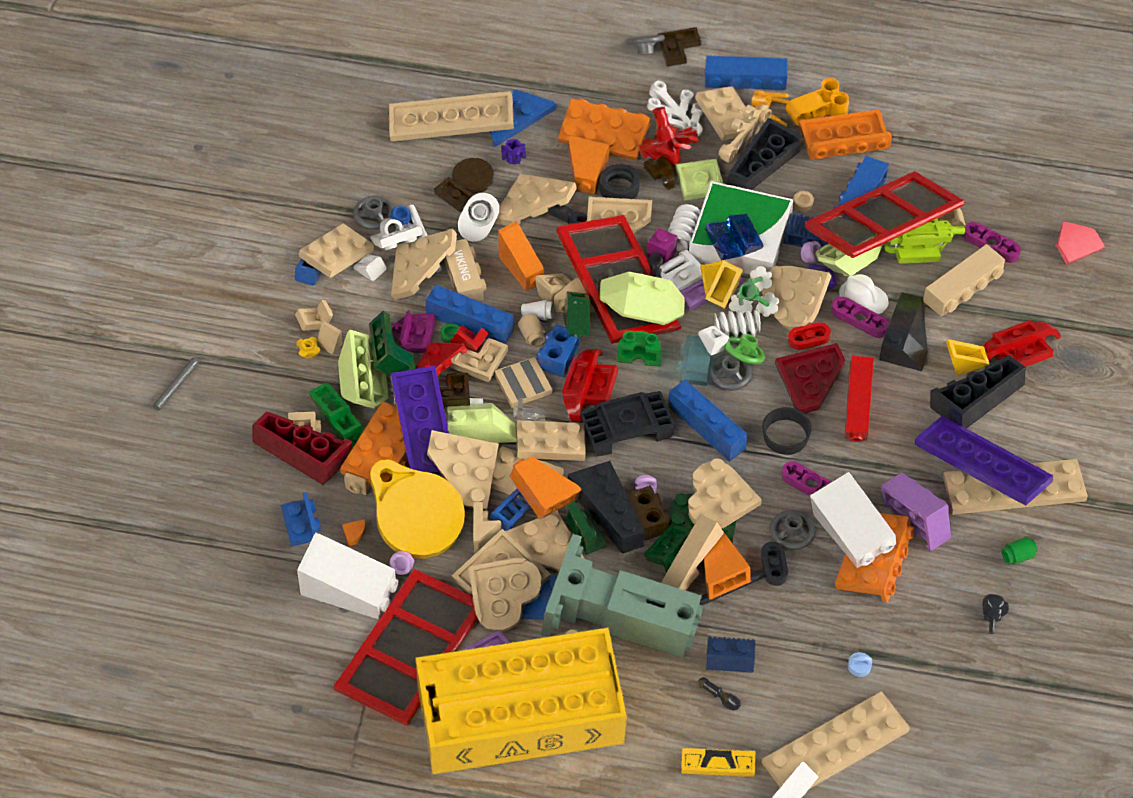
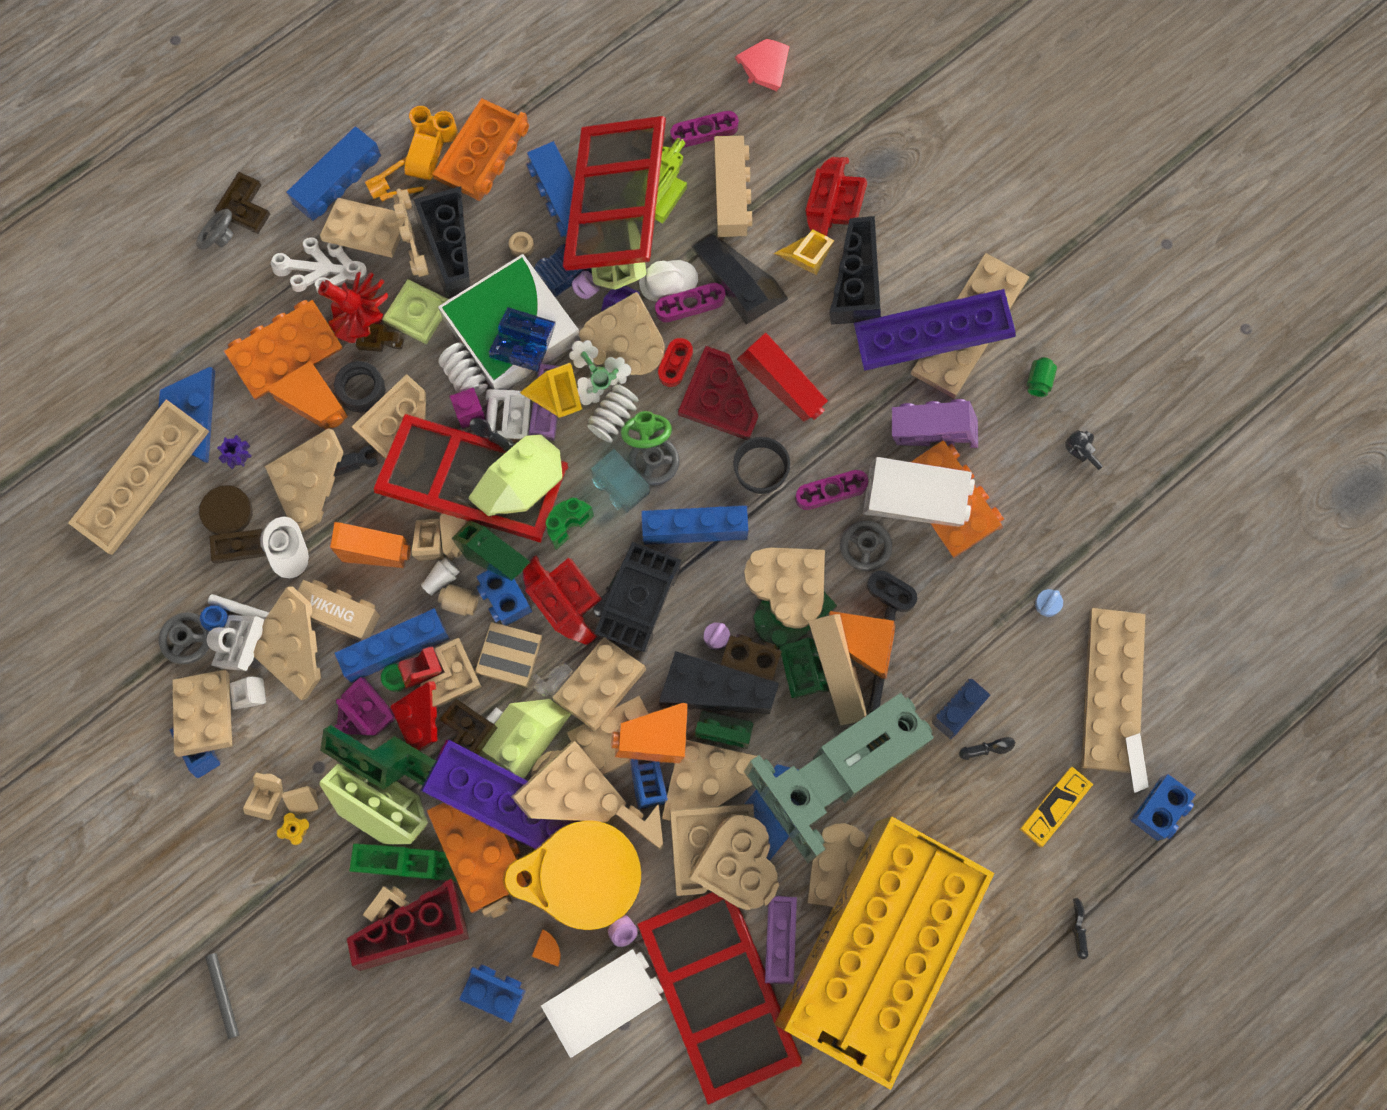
camera: 50 degrees left, 20 degrees up
(713, 339) = (618, 450): white slope -> none

